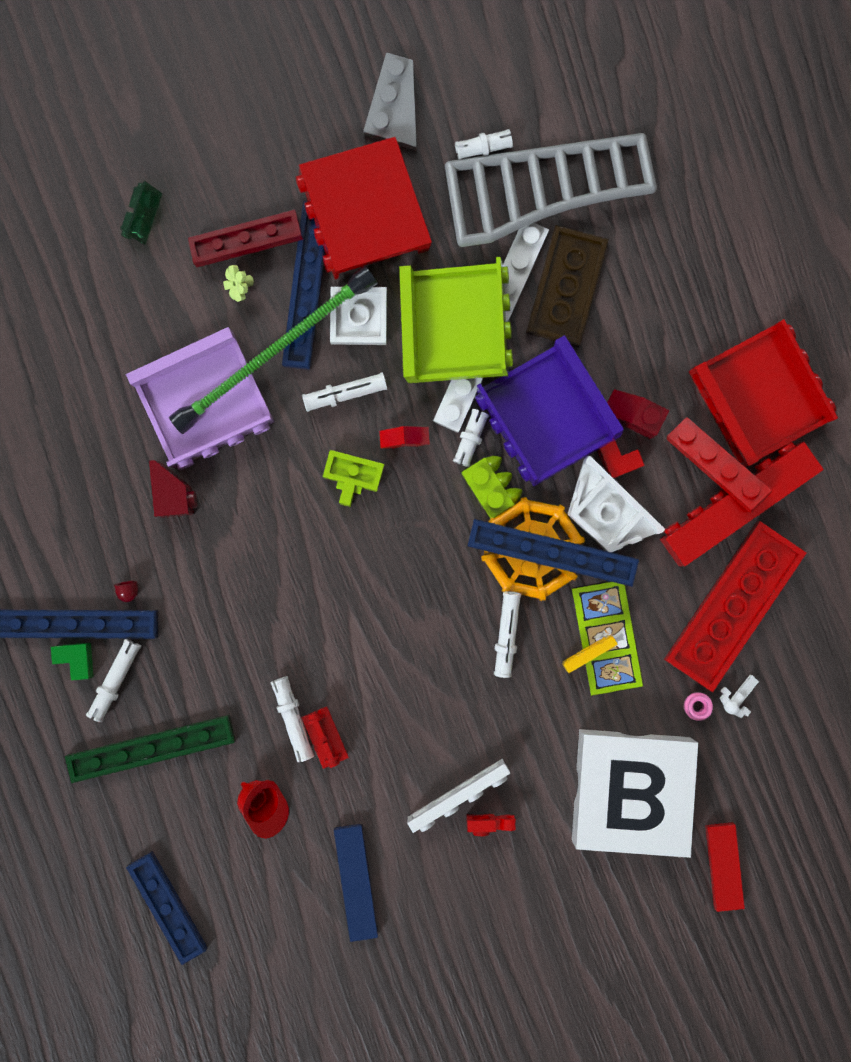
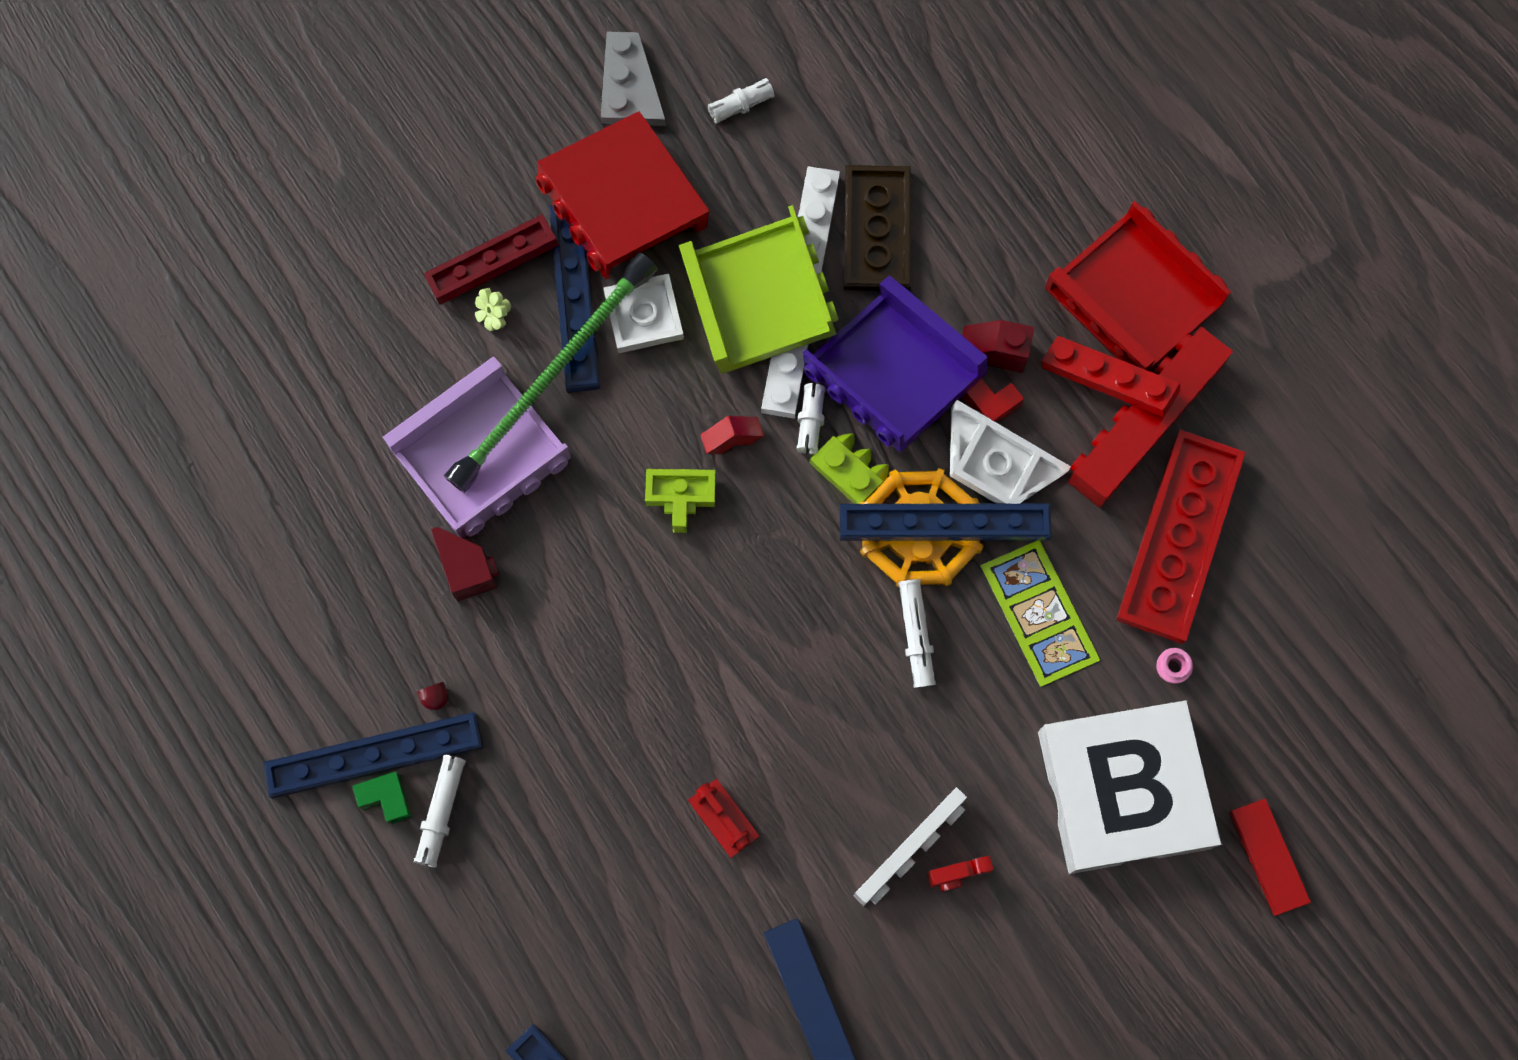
camera: 15 degrees left, 15 degrees down
(145, 202) = (364, 248): clear green hinge -> none
(150, 748) = (503, 889): dark green tile -> none
(263, 807) = (666, 921): red piece -> none
(290, 713) = (679, 808): white pin -> none
(344, 392) = (647, 401): white pin -> none
(543, 210) = (826, 151): light grey bar -> none
(589, 653) = (1022, 631): yellow tile -> none
(732, 705) = (1216, 653): white piece -> none

